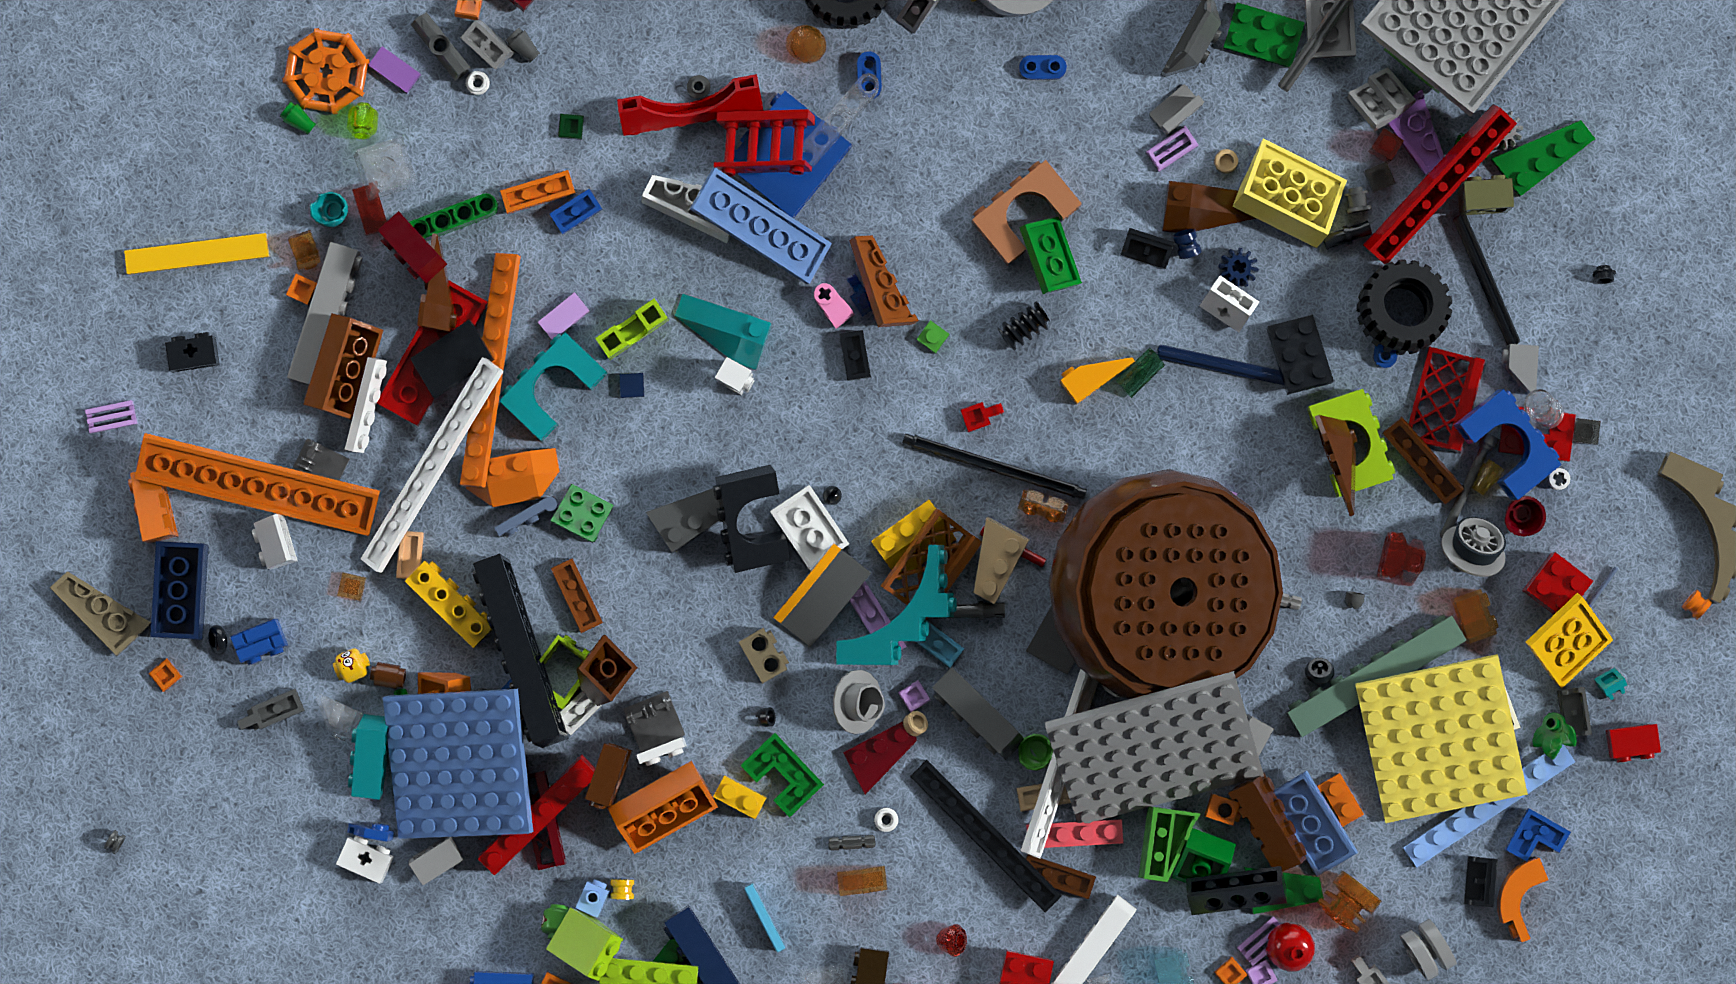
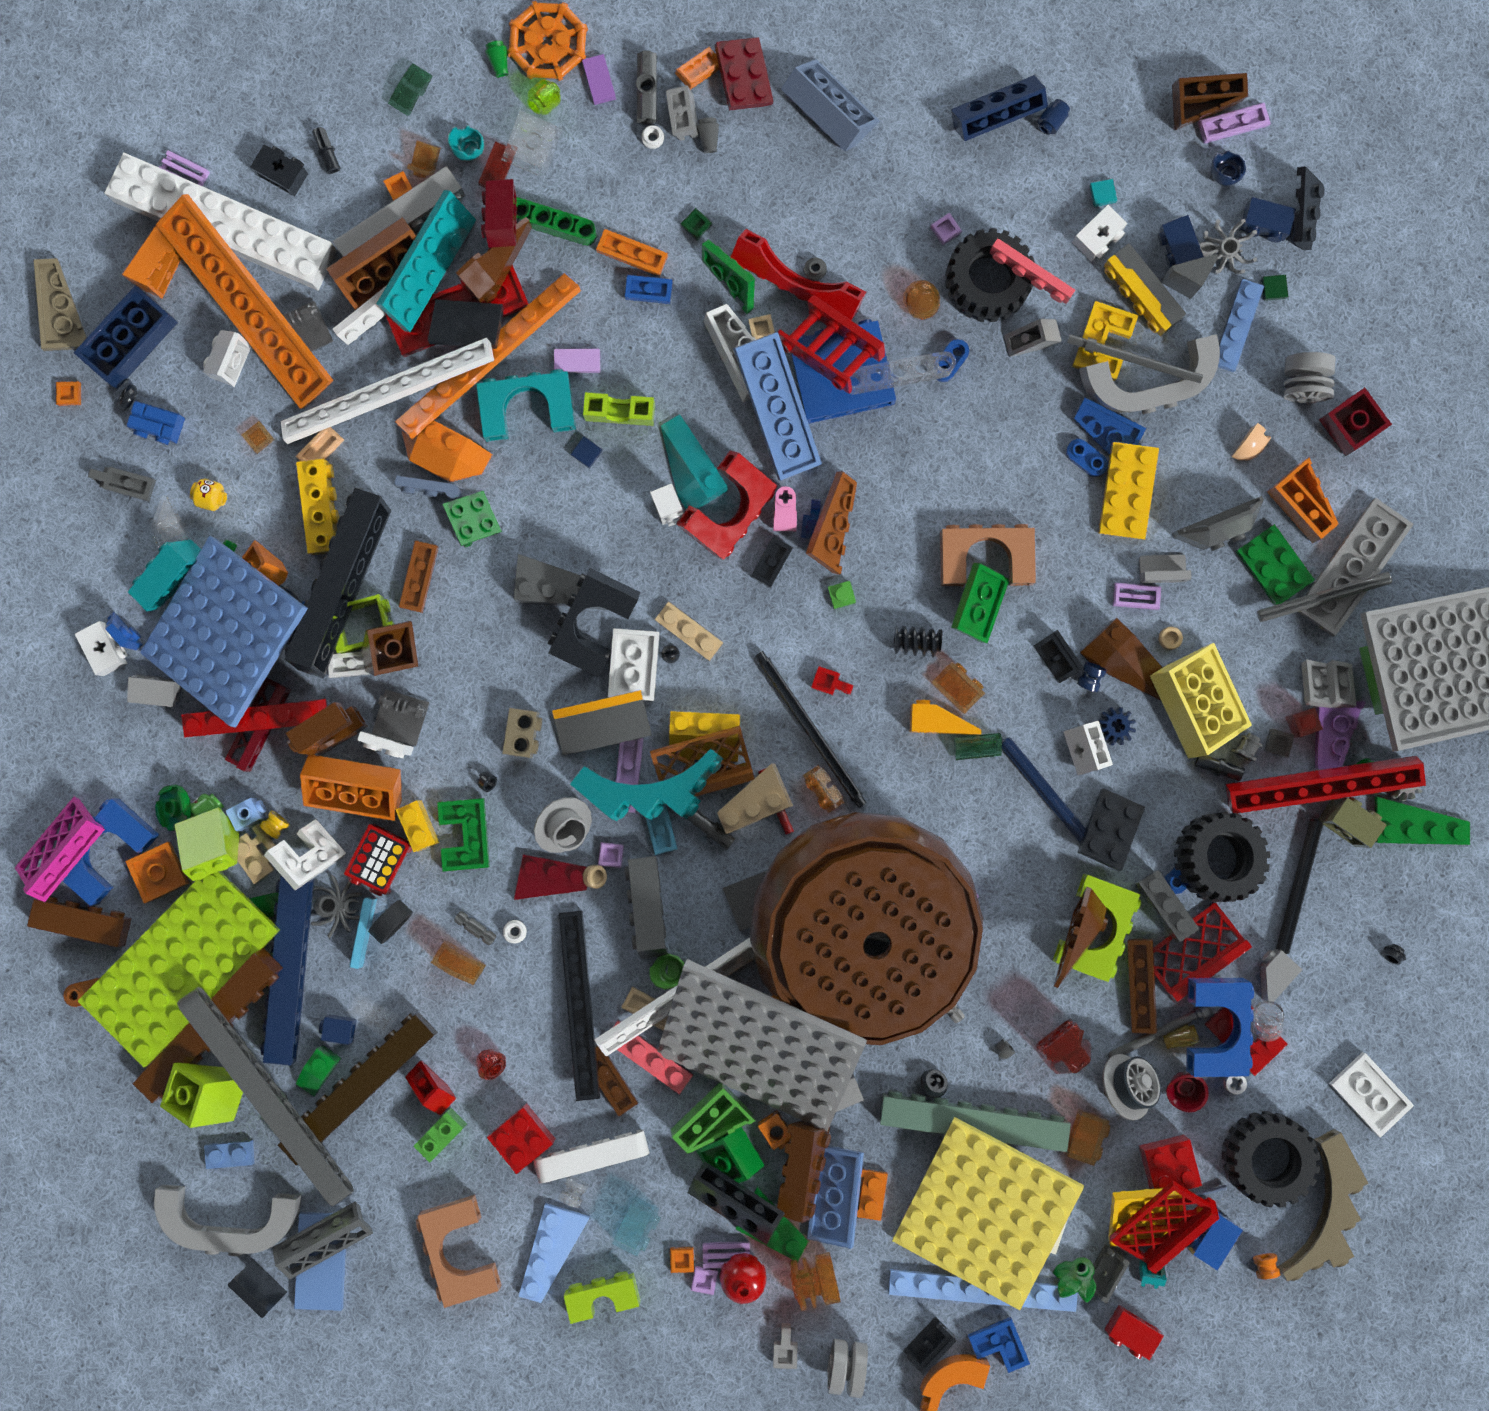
camera: 40 degrees right, 0 degrees up
(196, 253) = (343, 100): yellow tile -> none
(206, 424) = (244, 229): none -> white brick
(216, 306) = (325, 150): none -> black axle
(245, 201) = (410, 88): none -> clear green slope
(379, 333) = (426, 261): none -> teal plate
(388, 675) = (230, 524): reddish brown brick -> none
(529, 940) = (172, 806): none -> green tile
(633, 933) = (252, 858): none -> tan plate
(643, 147) = (725, 268): none -> green wing
(679, 899) = (299, 870): none -> white plate
(694, 170) = (761, 326): none -> tan plate
(725, 915) = (335, 906): none -> dark grey animal
(730, 850) = (377, 859): none -> panel
(780, 890) = (390, 921): none -> black tyre
(796, 310) = (754, 492): none -> red arch
(832, 465) = (688, 631): none -> tan plate
(1044, 30) = (1107, 426): none -> blue wing
(1086, 337) = (958, 687): none -> clear orange bracket
(1097, 68) = (1128, 490): none -> yellow plate
(1393, 380) = (1172, 912): none -> dark grey arch
(1586, 431) = (1286, 1064): clear smoke plate -> none
(1605, 630) = (1177, 1235): none -> red fence
(1632, 615) = (1216, 1242): none -> blue brick
(1664, 516) = (1298, 1172): none -> black tyre
(1673, 401) = (1371, 1094): none -> white plate

